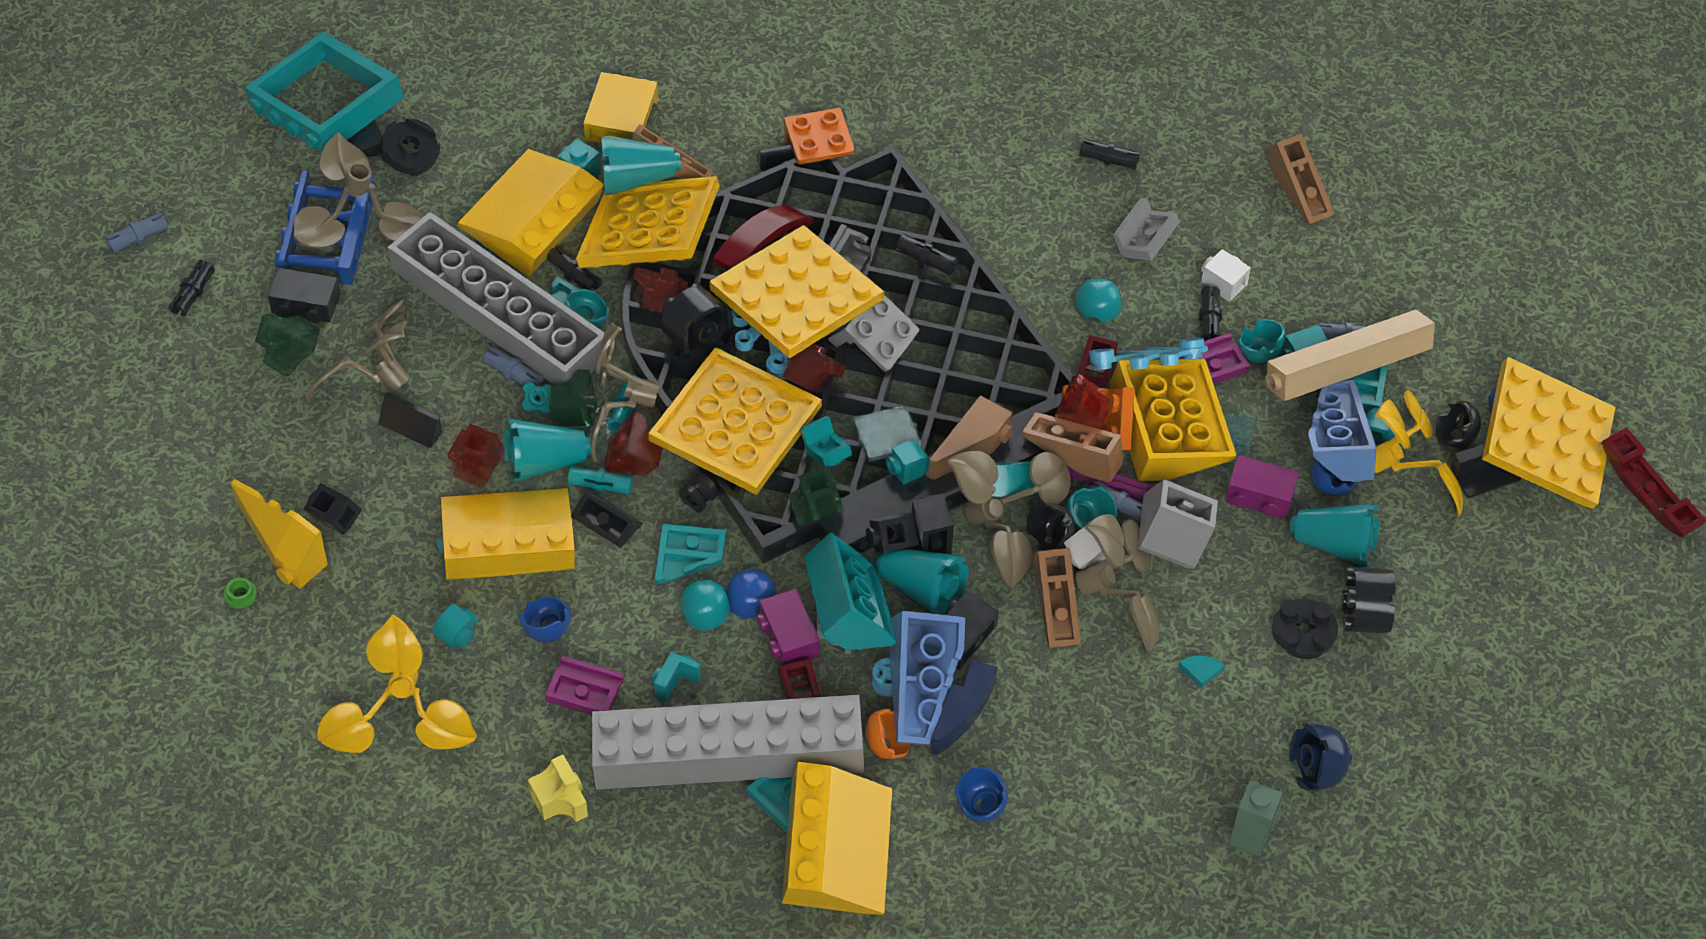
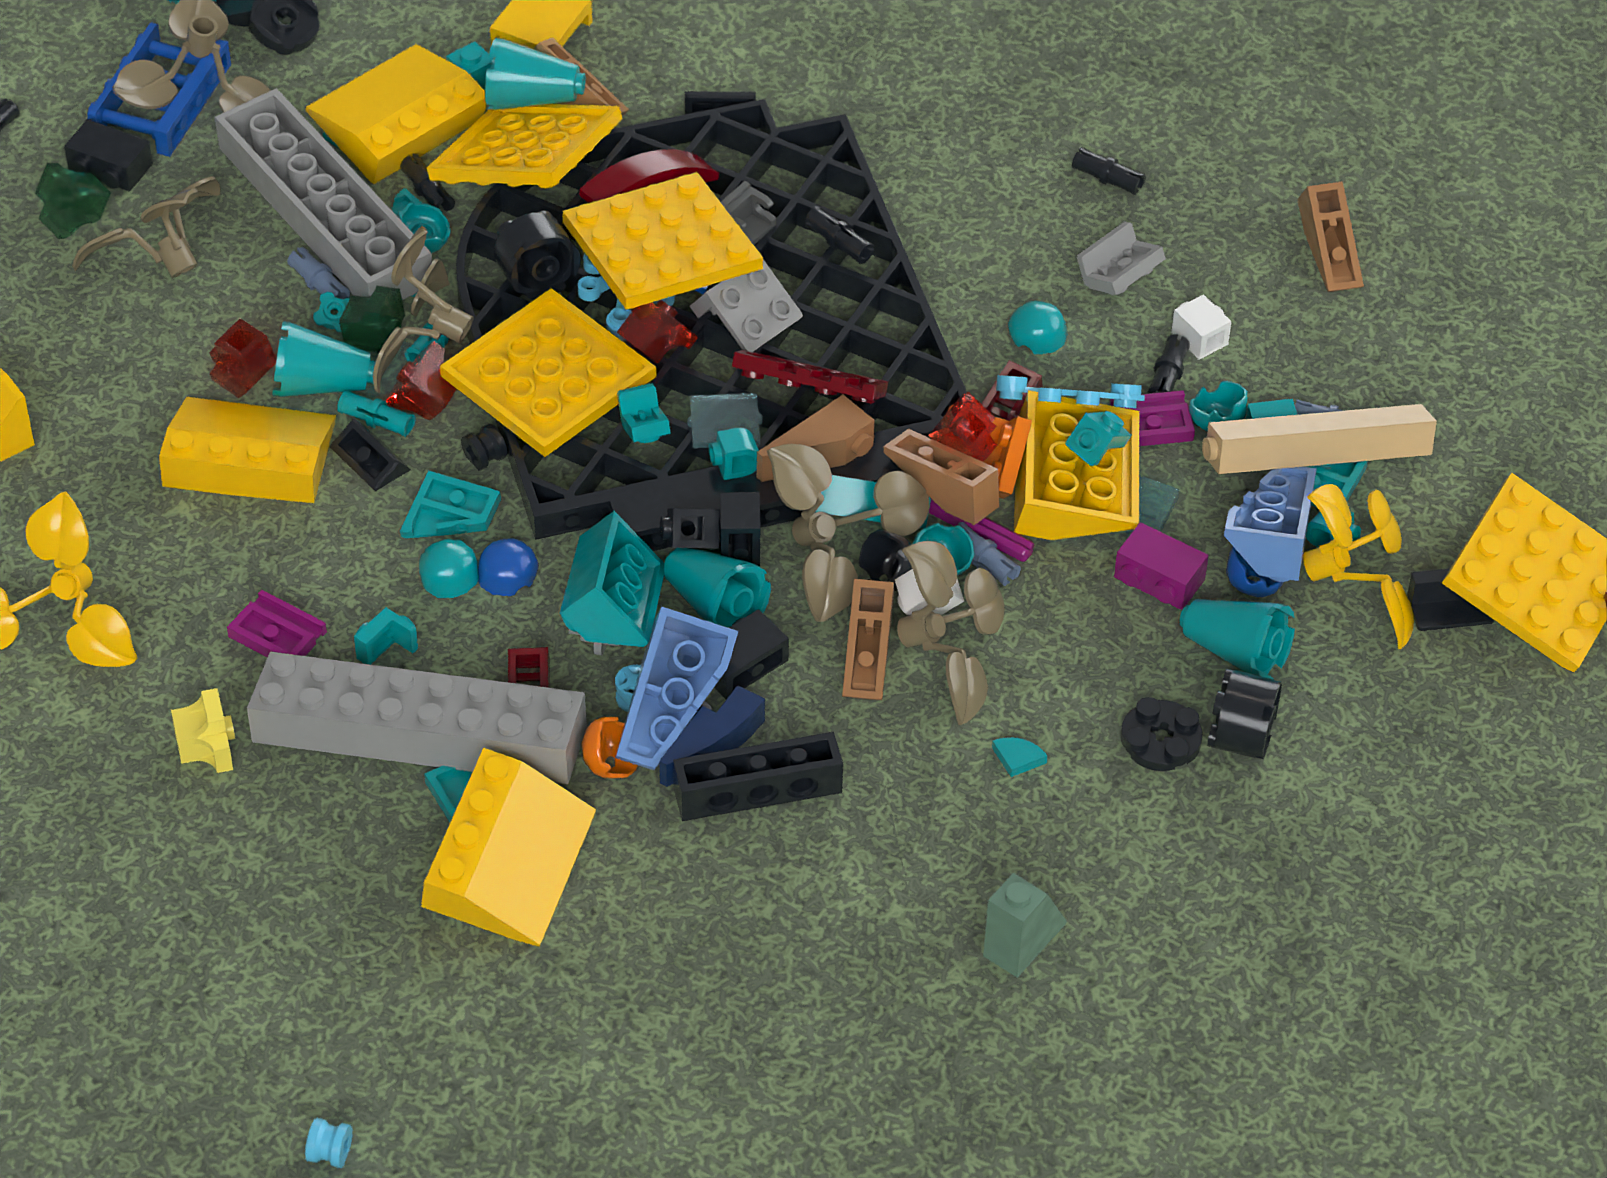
camera: 15 degrees right, 5 degrees down
(332, 508) = (58, 385): black brick -> none
(410, 420) = (180, 308): black slope -> none
(455, 626) = (151, 535): teal plate -> none
(548, 608) = (257, 547): blue hair -> none
(659, 286) = (503, 206): clear red brick -> none
(788, 628) = (534, 609): magenta brick -> none
(815, 496) = (612, 469): clear green brick -> none
(818, 135) = (760, 87): orange bracket -> none
(947, 382) = (797, 373): none -> dark red wing
(983, 784) = (698, 825): blue hair -> none
(1013, 732) = (757, 776): none -> black brick
(1176, 523) = (1038, 584): light grey slope -> none
(1185, 390) = (1096, 435): none -> teal bracket
(1321, 750) = (1131, 874): dark blue cylinder -> none
(1462, 417) = (1439, 536): black hair -> none

